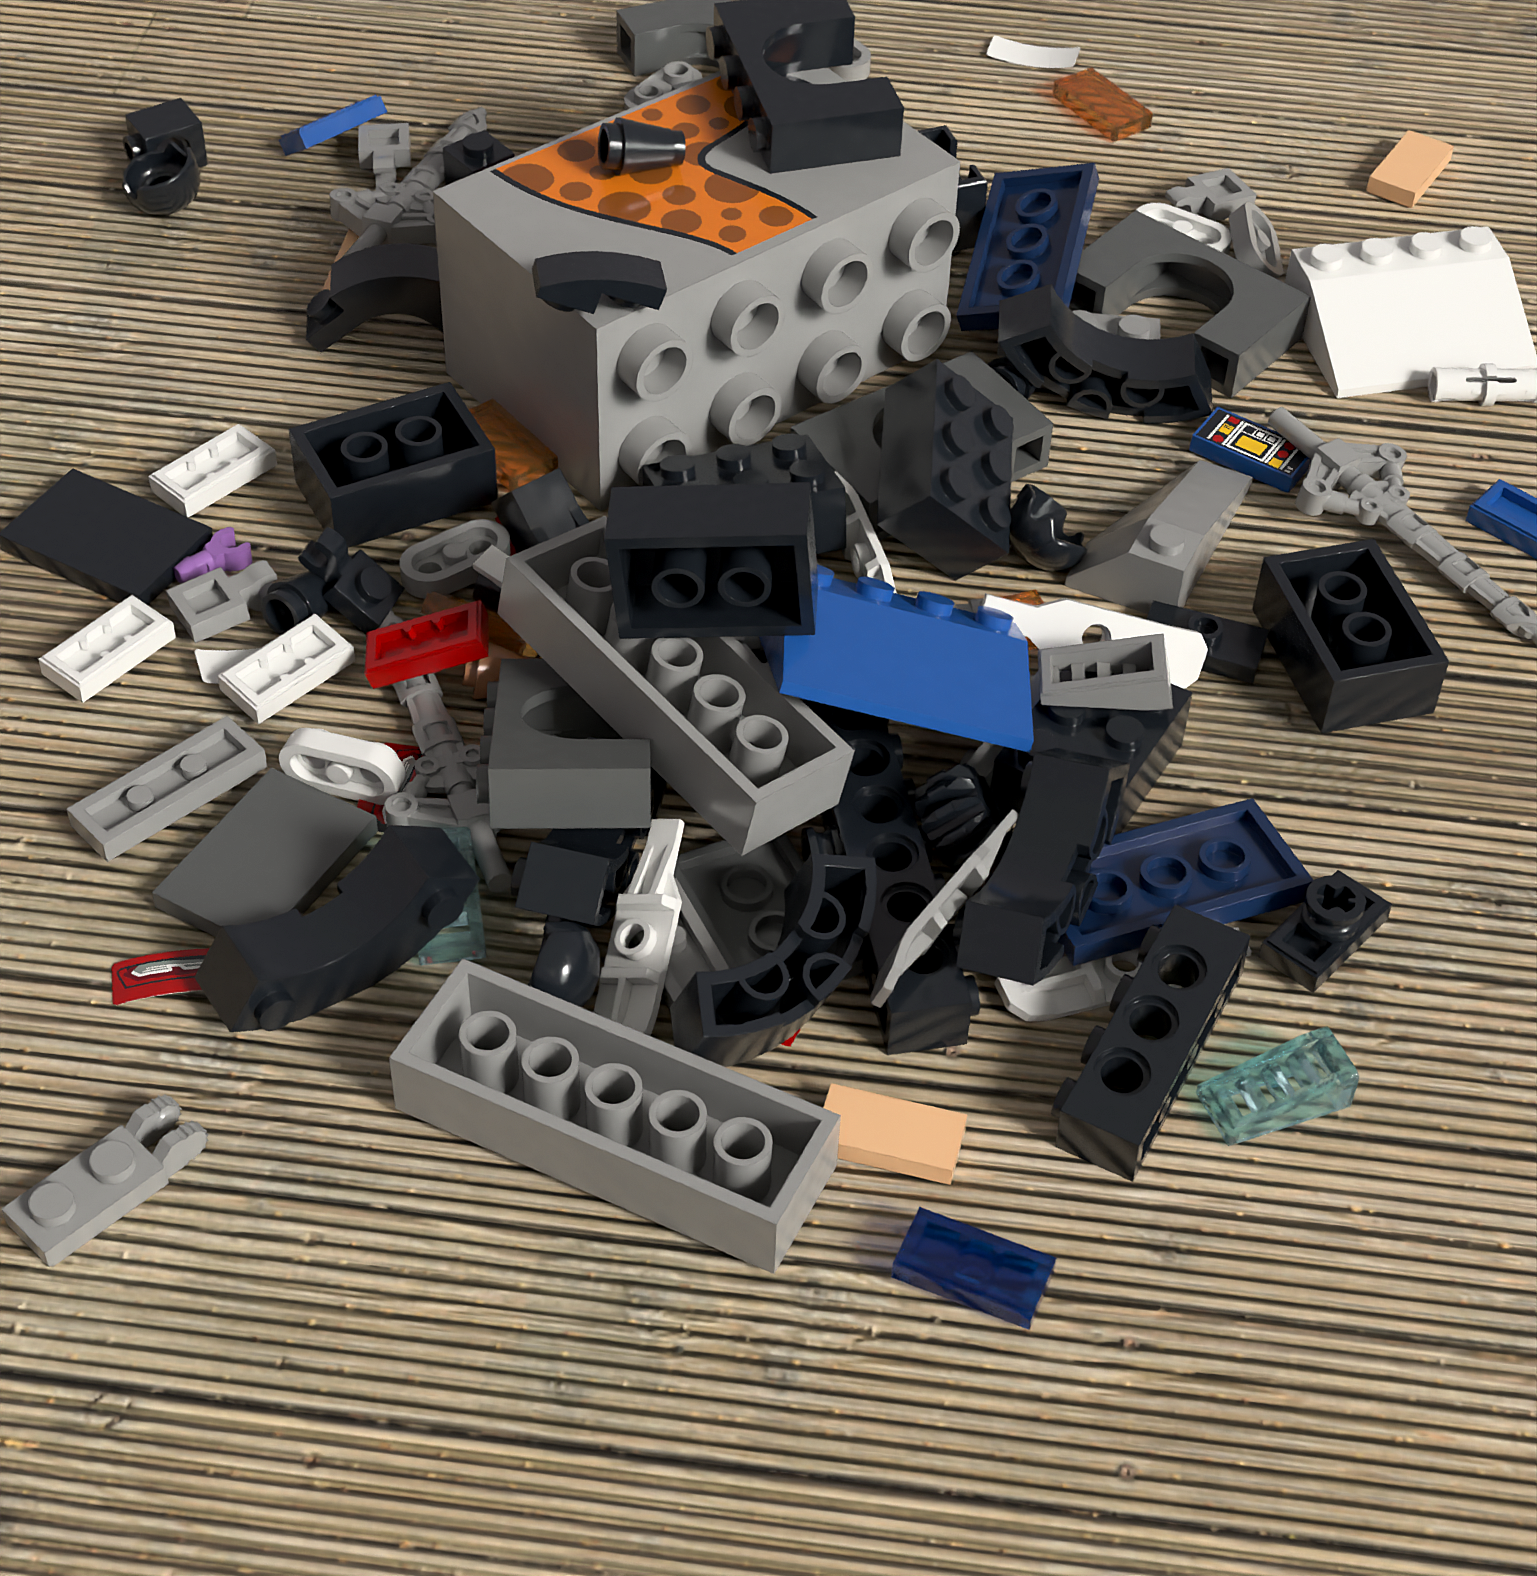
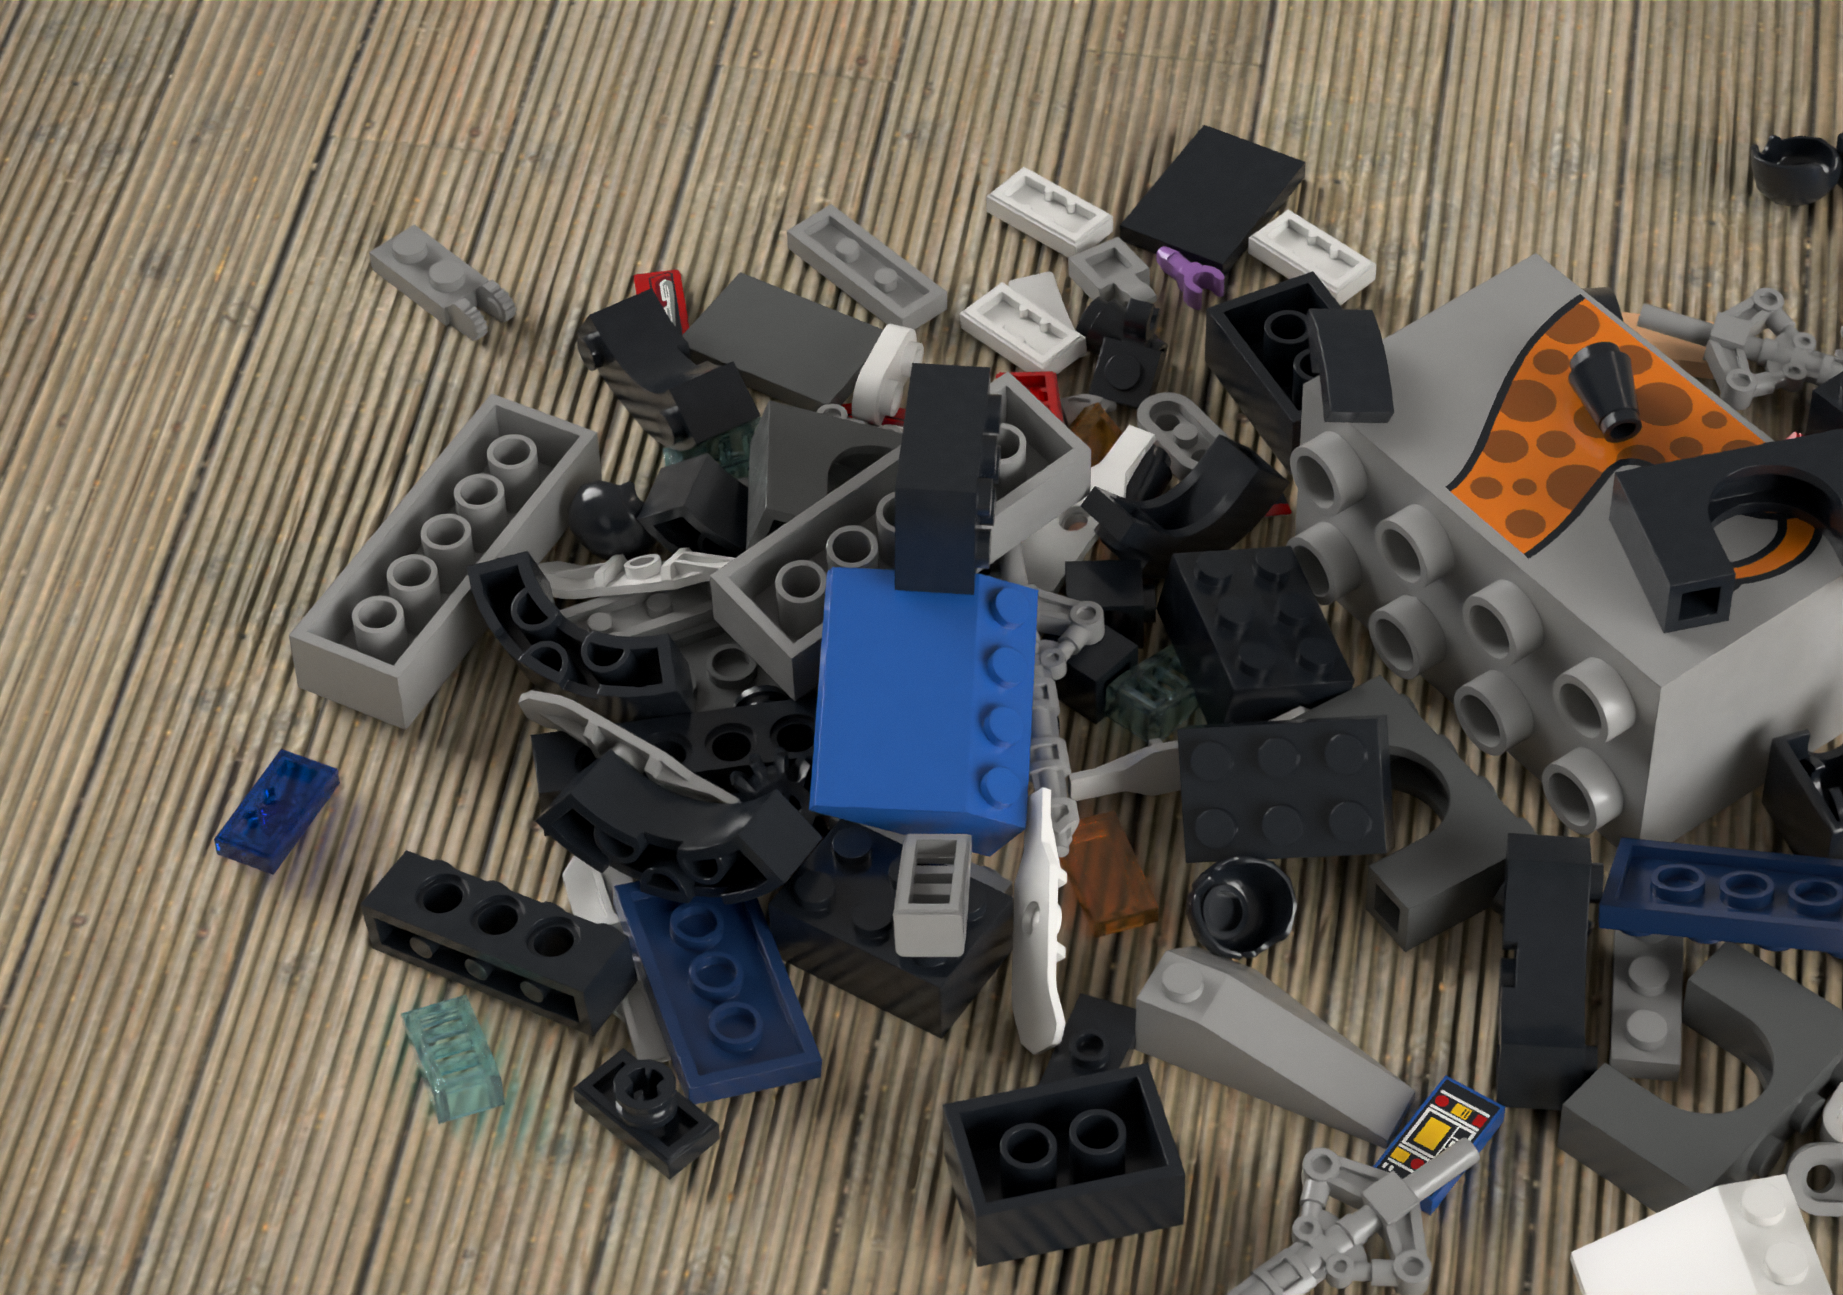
camera: 95 degrees right, 0 degrees up
(897, 1133) = (434, 767): light nougat tile -> none

